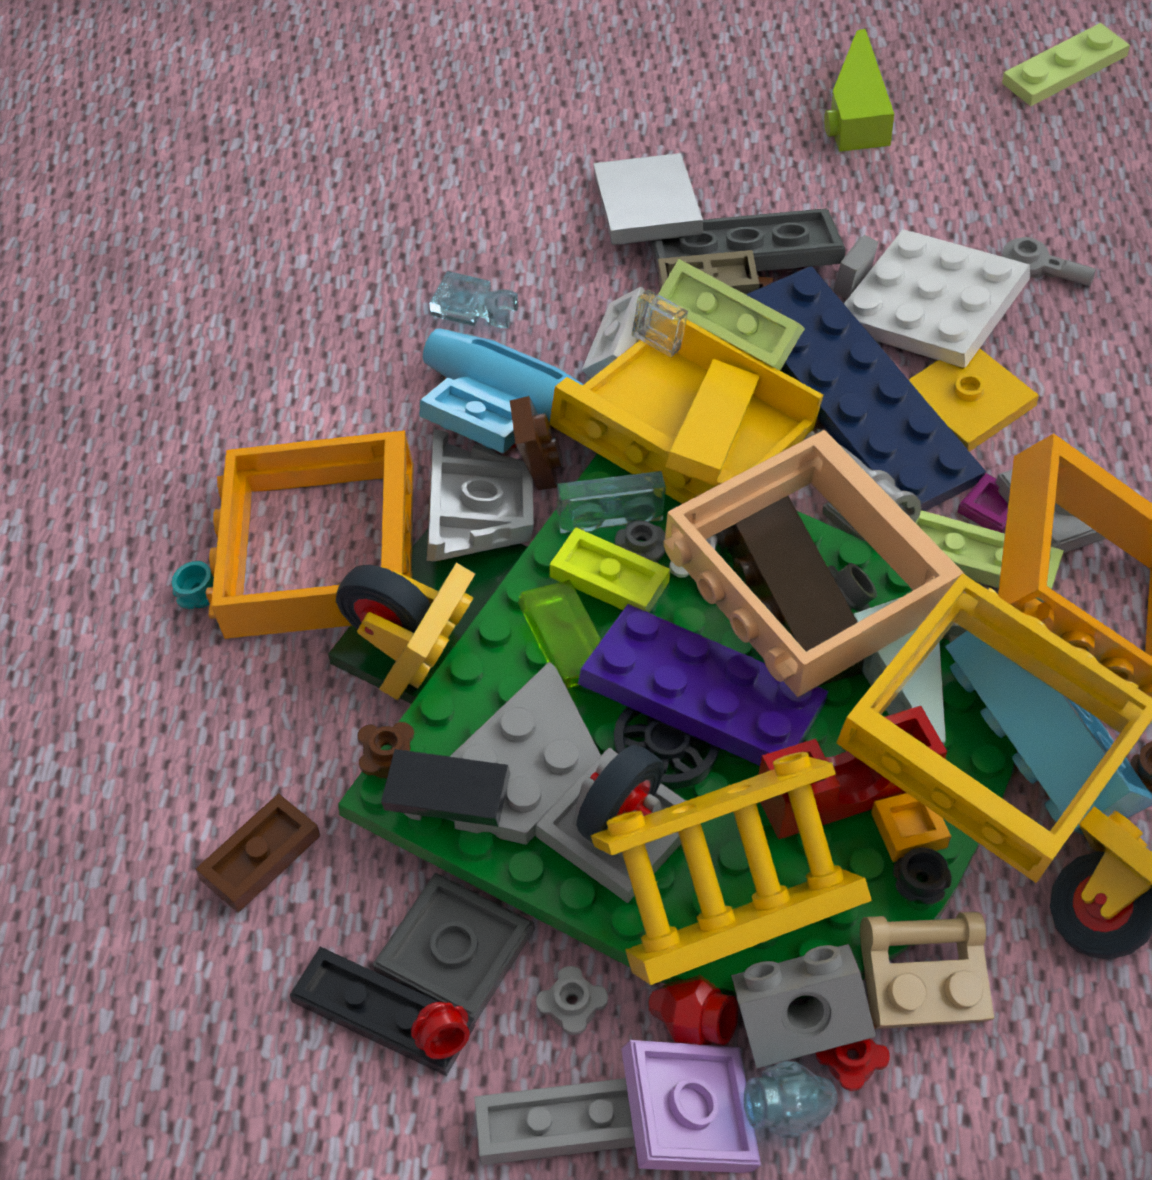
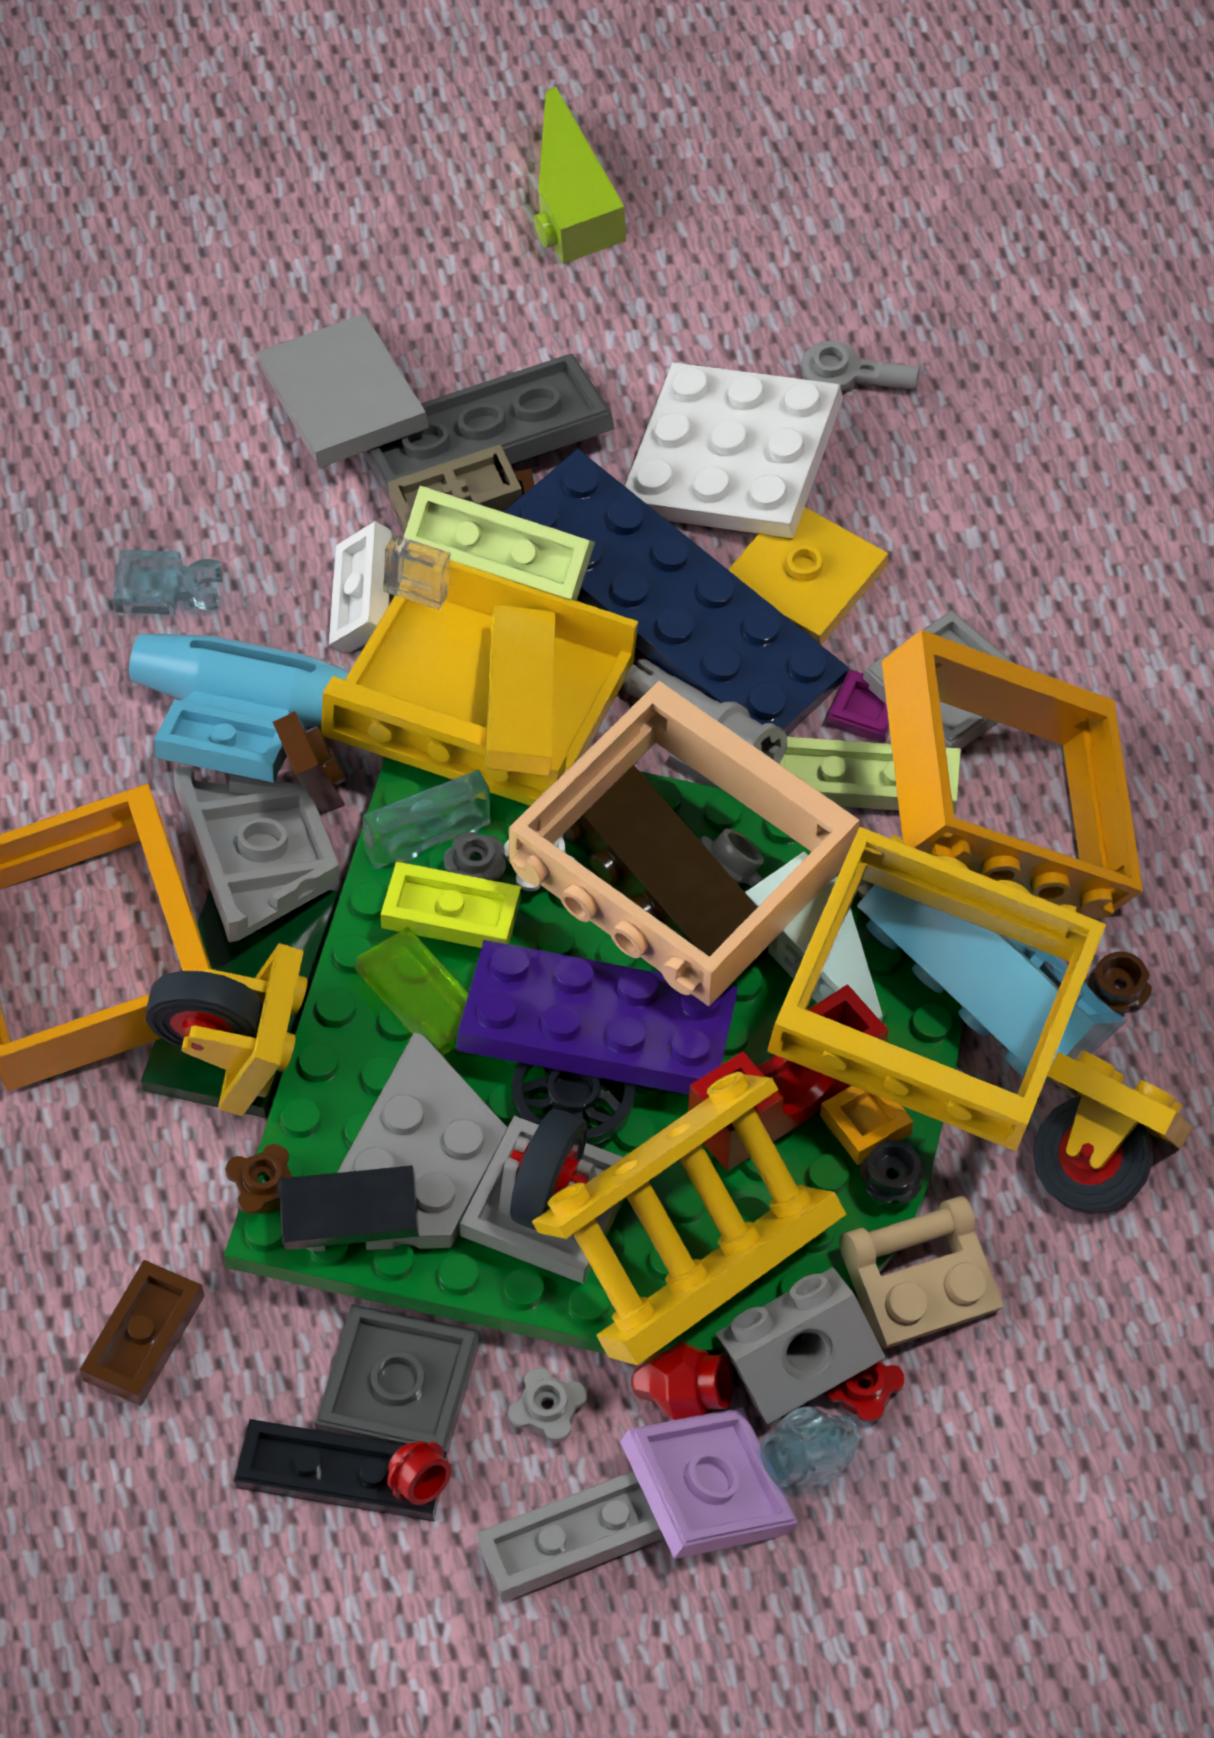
camera: 15 degrees left, 5 degrees up
(855, 266) = (628, 430): light grey tile -> none
(1065, 64) = (818, 75): yellowish green plate -> none

